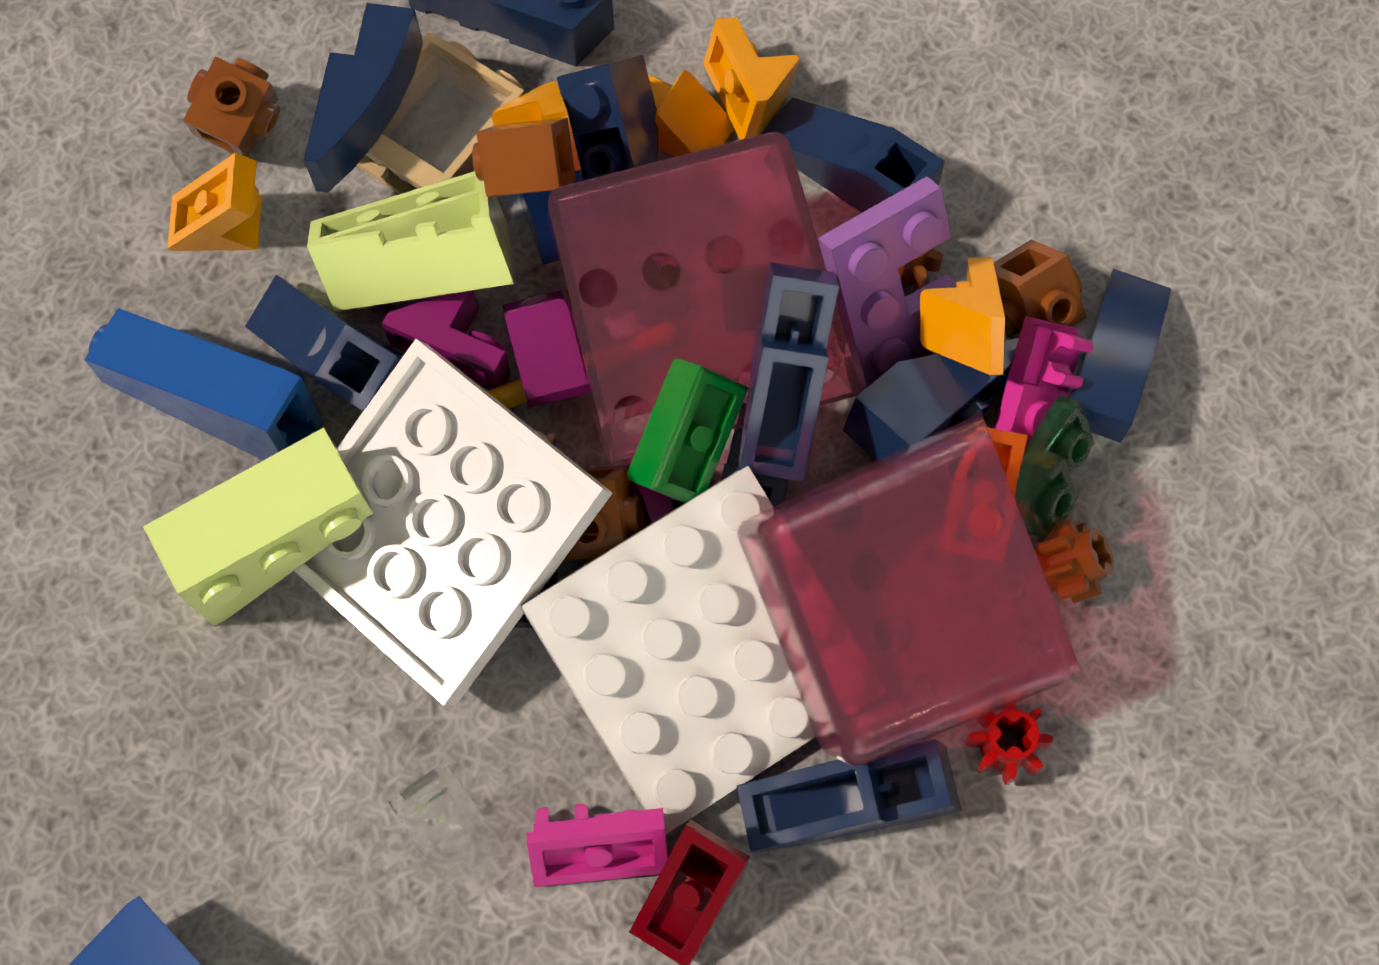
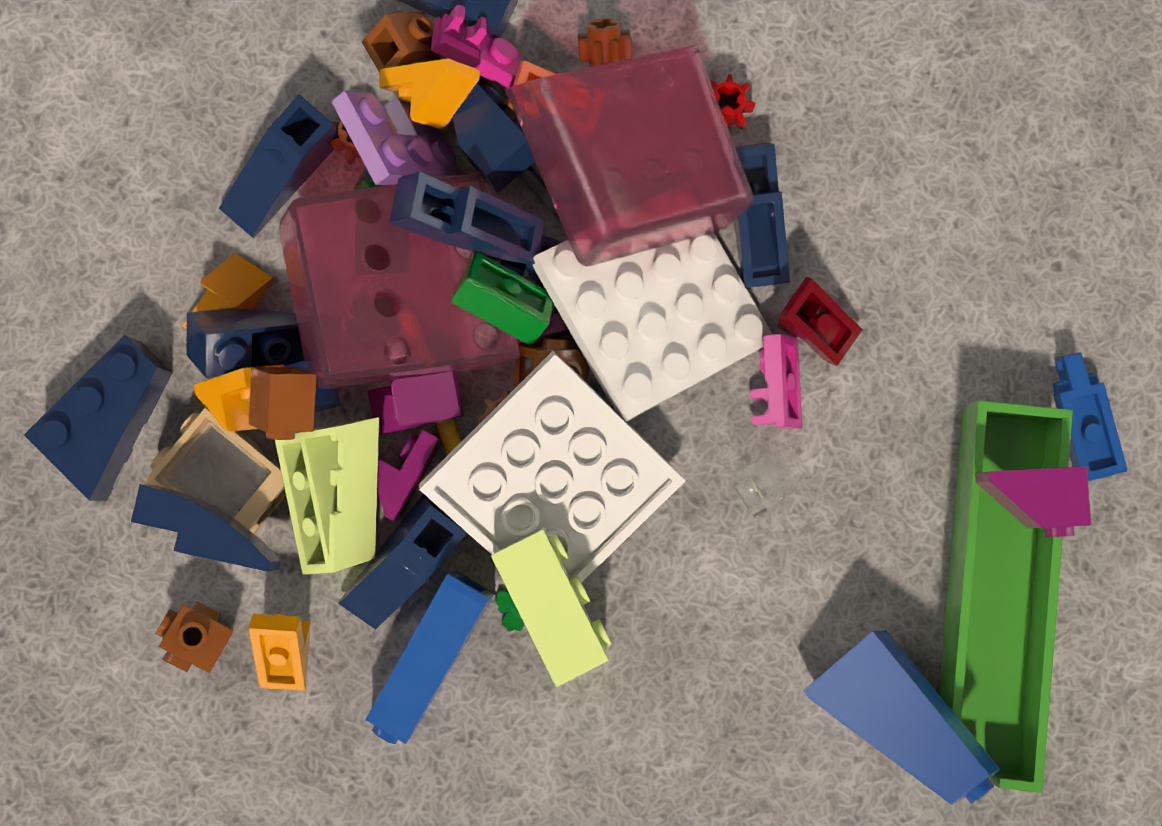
camera: 85 degrees left, 15 degrees up
(747, 84) = (207, 242): light orange slope -> none
(1044, 480) = (551, 52): clear green slope -> none

